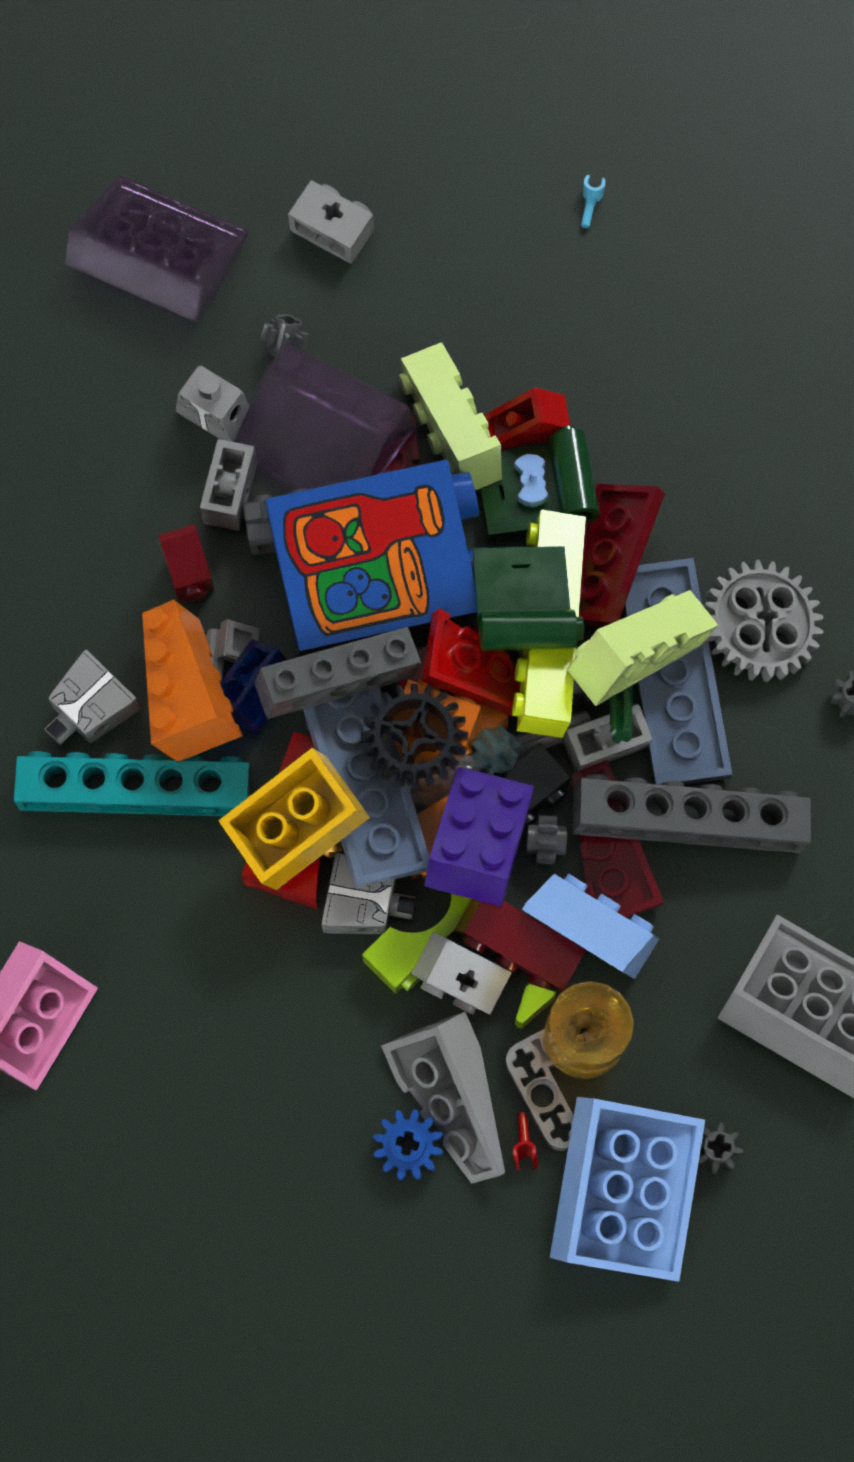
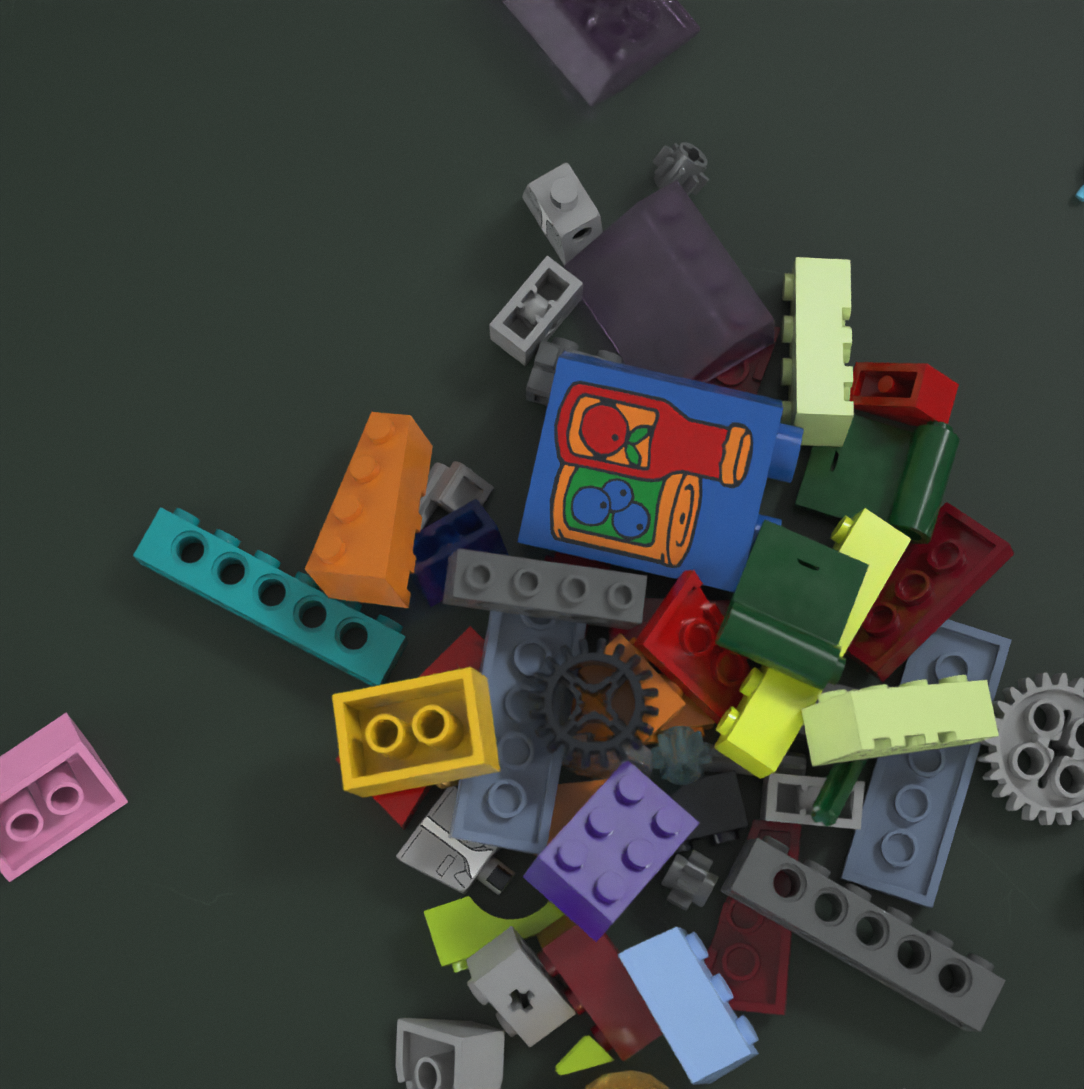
camera: 25 degrees right, 5 degrees up
(89, 701) = (268, 481): light grey torso -> none
(186, 563) = (447, 379): dark red slope -> none
(331, 221) = (798, 84): light grey brick -> none
(532, 480) = (874, 465): light blue piece -> none

